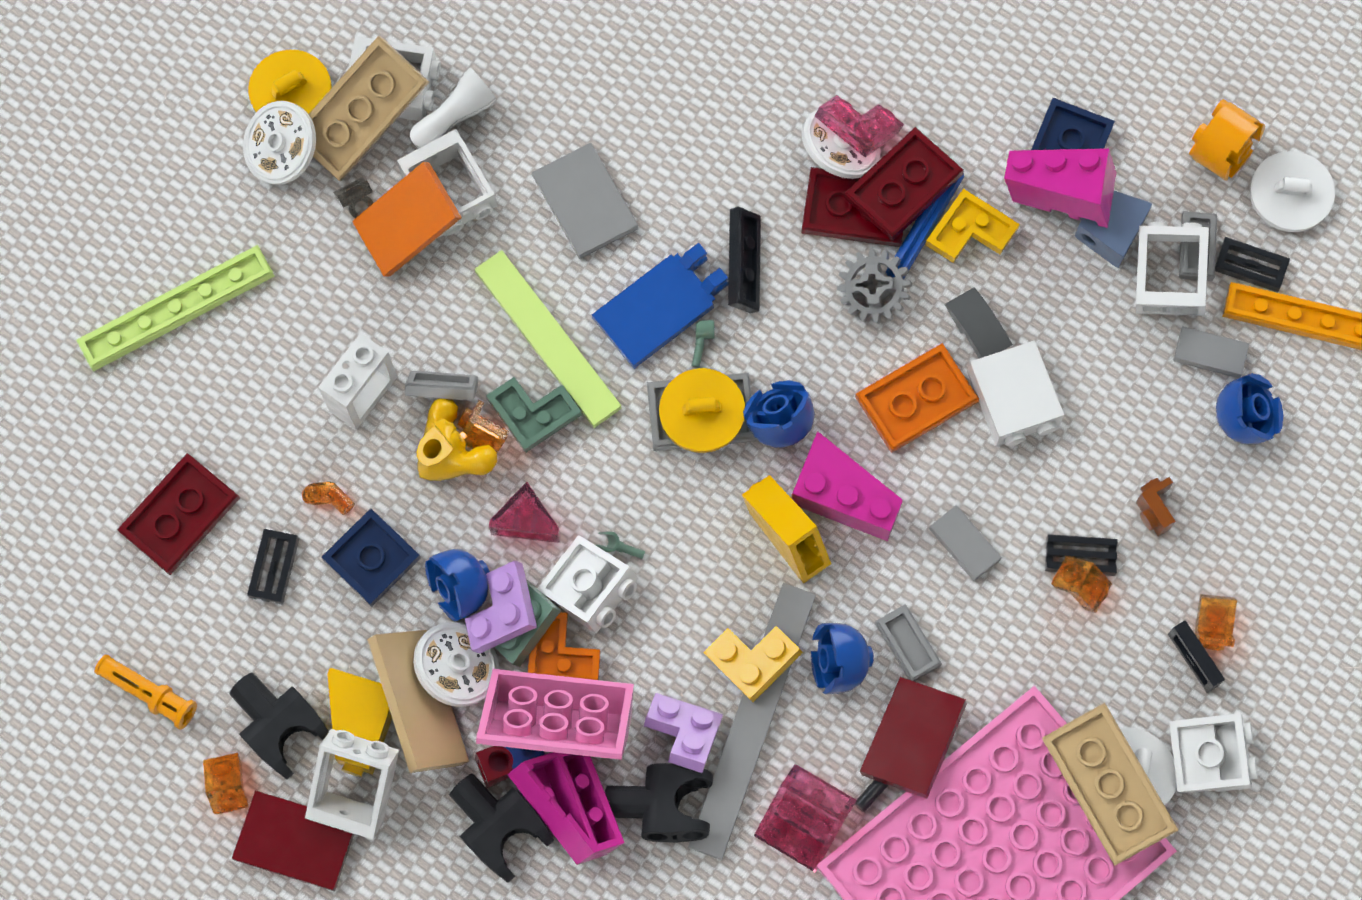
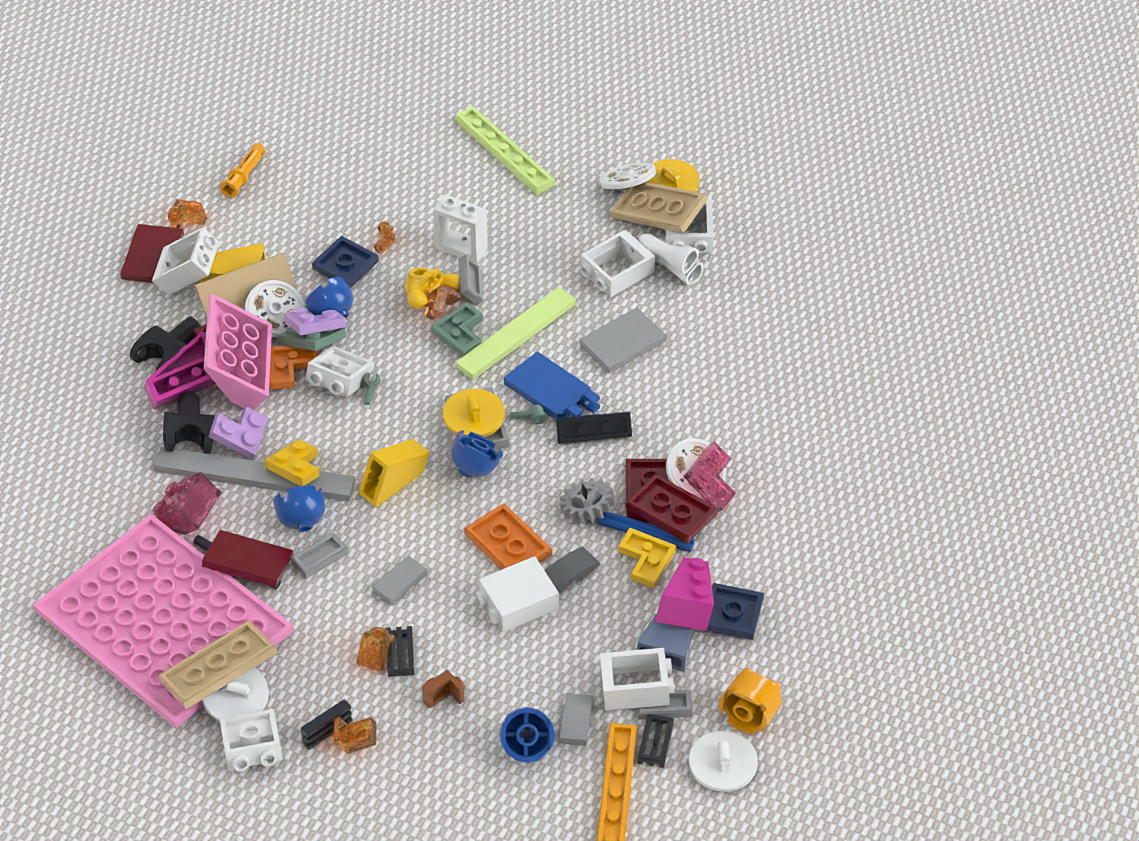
camera: 80 degrees right, 25 degrees down
(178, 514) = (364, 171): dark red tile -> none
(267, 594) = (334, 219): black tile -> none
(274, 720) = (232, 231): black connector -> none
(352, 194) = (599, 219): clear smoke tile -> none
(406, 219) = (584, 241): orange tile -> none
(525, 518) = (383, 331): clear pink slope -> none
(844, 491) = (426, 499): dark pink wedge -> none

